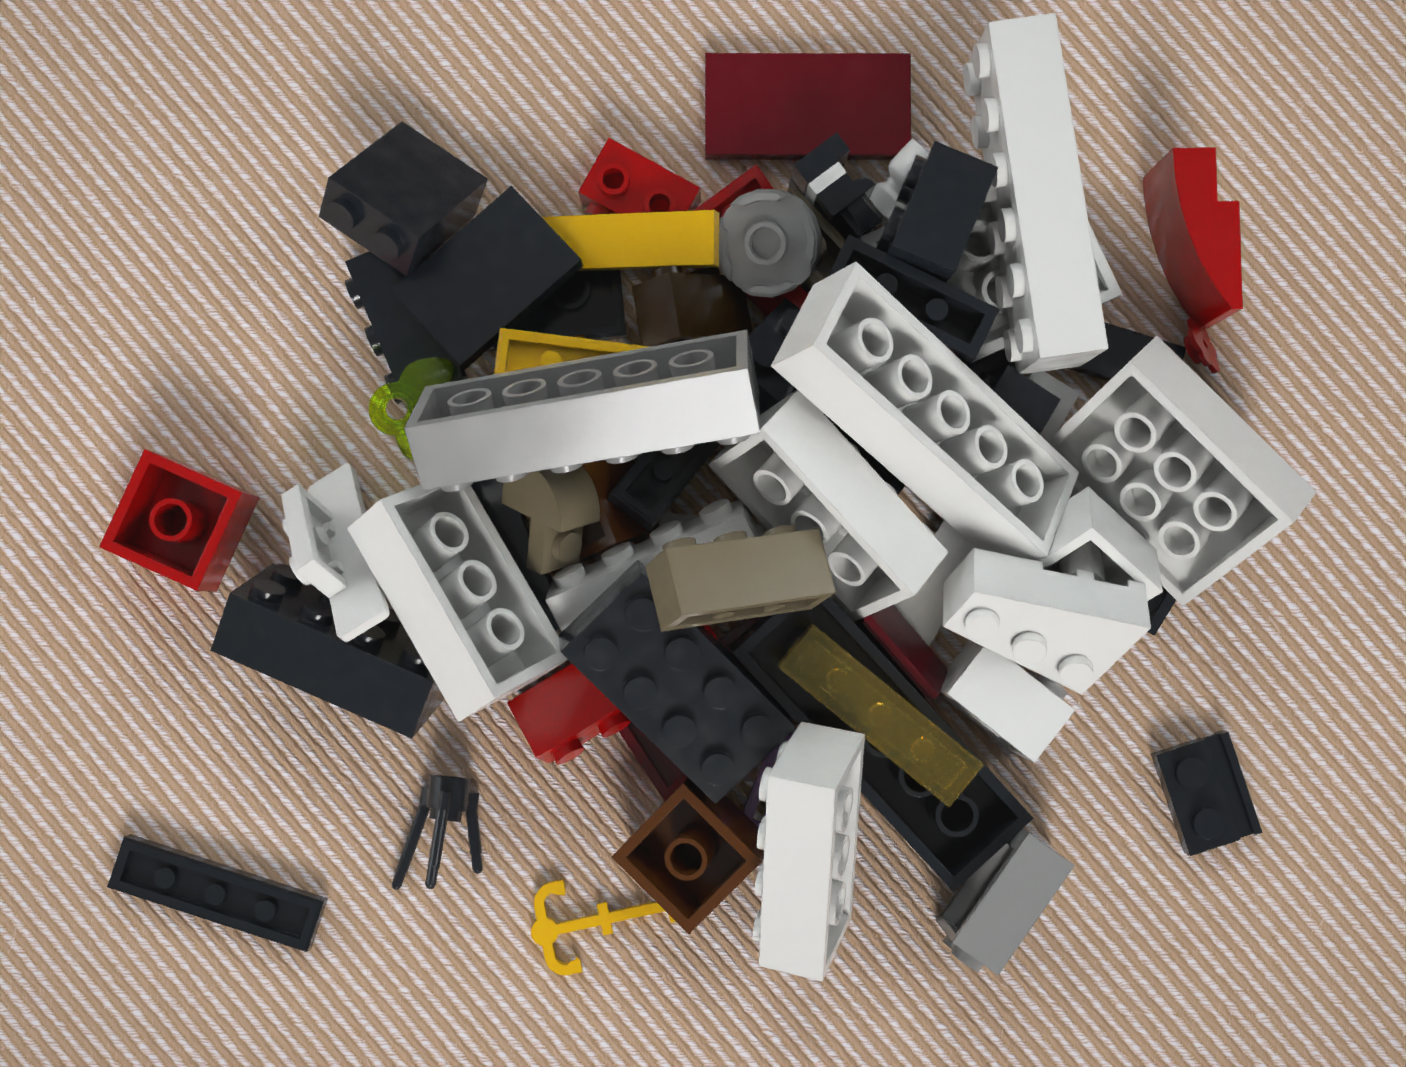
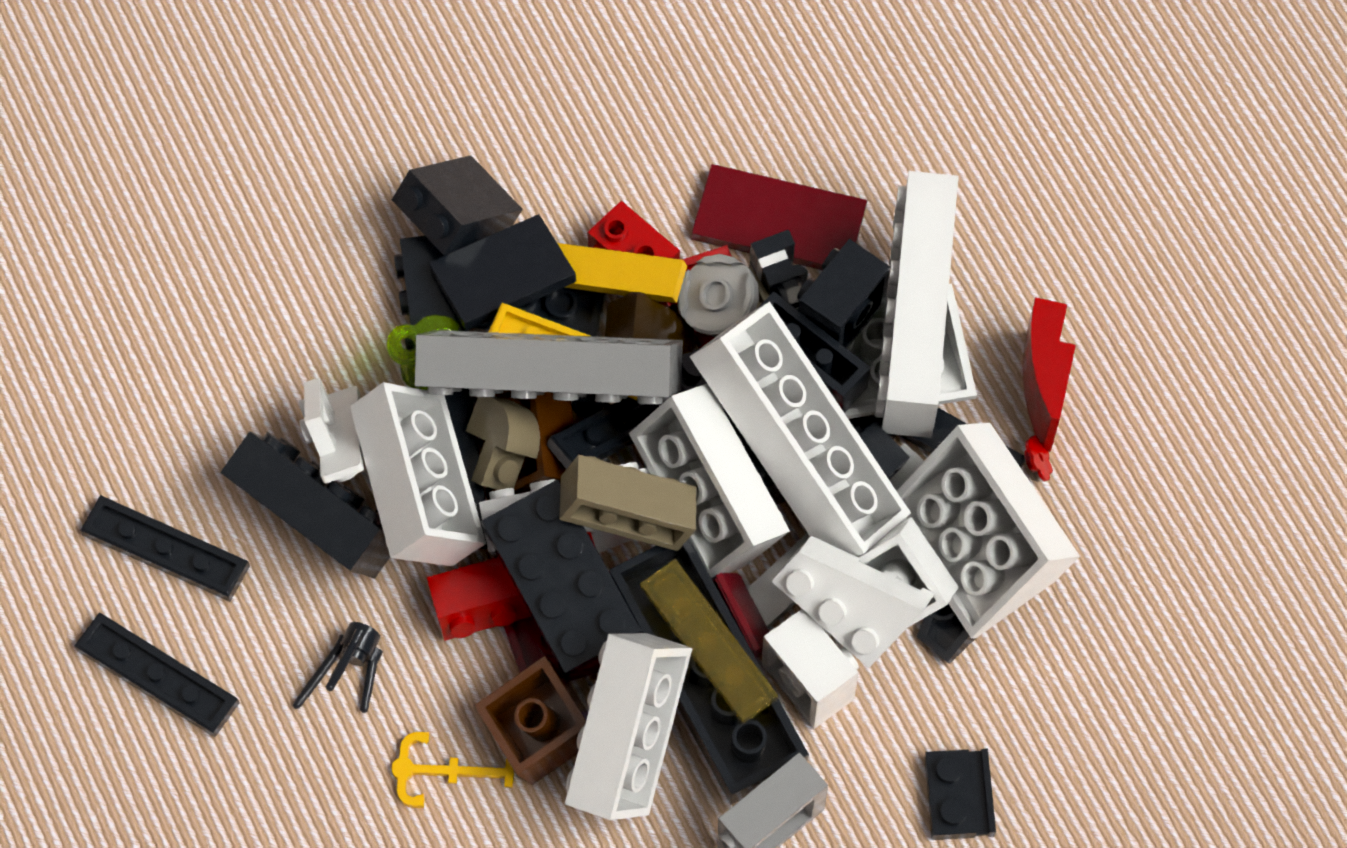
camera: 15 degrees right, 20 degrees down
(178, 731) = (165, 548): none -> black tile
(179, 522) = (219, 390): red brick -> none

